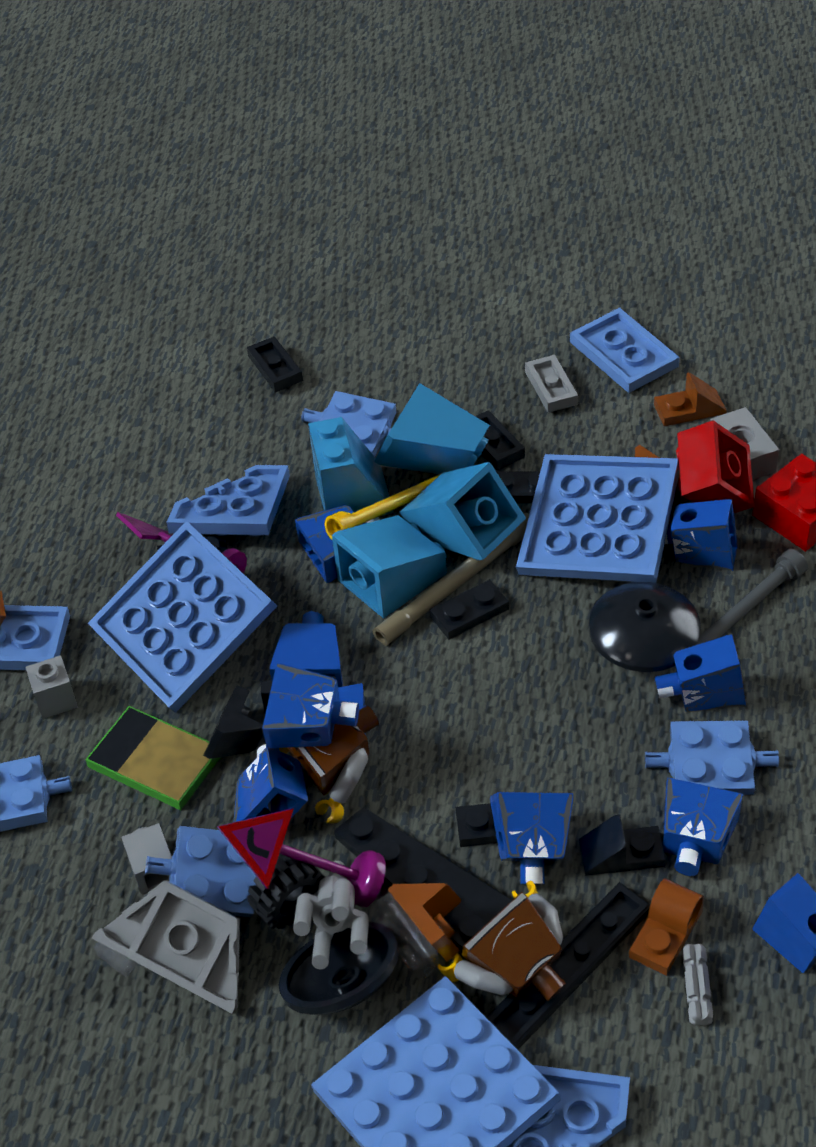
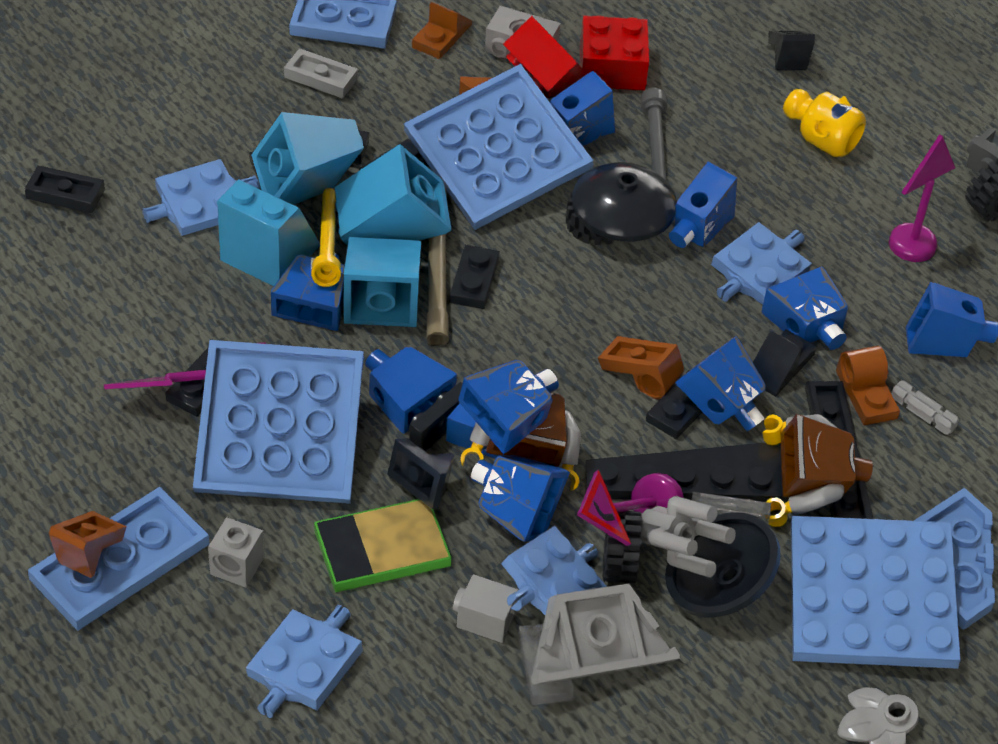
camera: 55 degrees left, 0 degrees up
(236, 506) = (191, 313): medium blue plate -> none
(427, 907) = (727, 482): dark orange slope -> none
(499, 763) = (651, 363): none -> dark orange plate

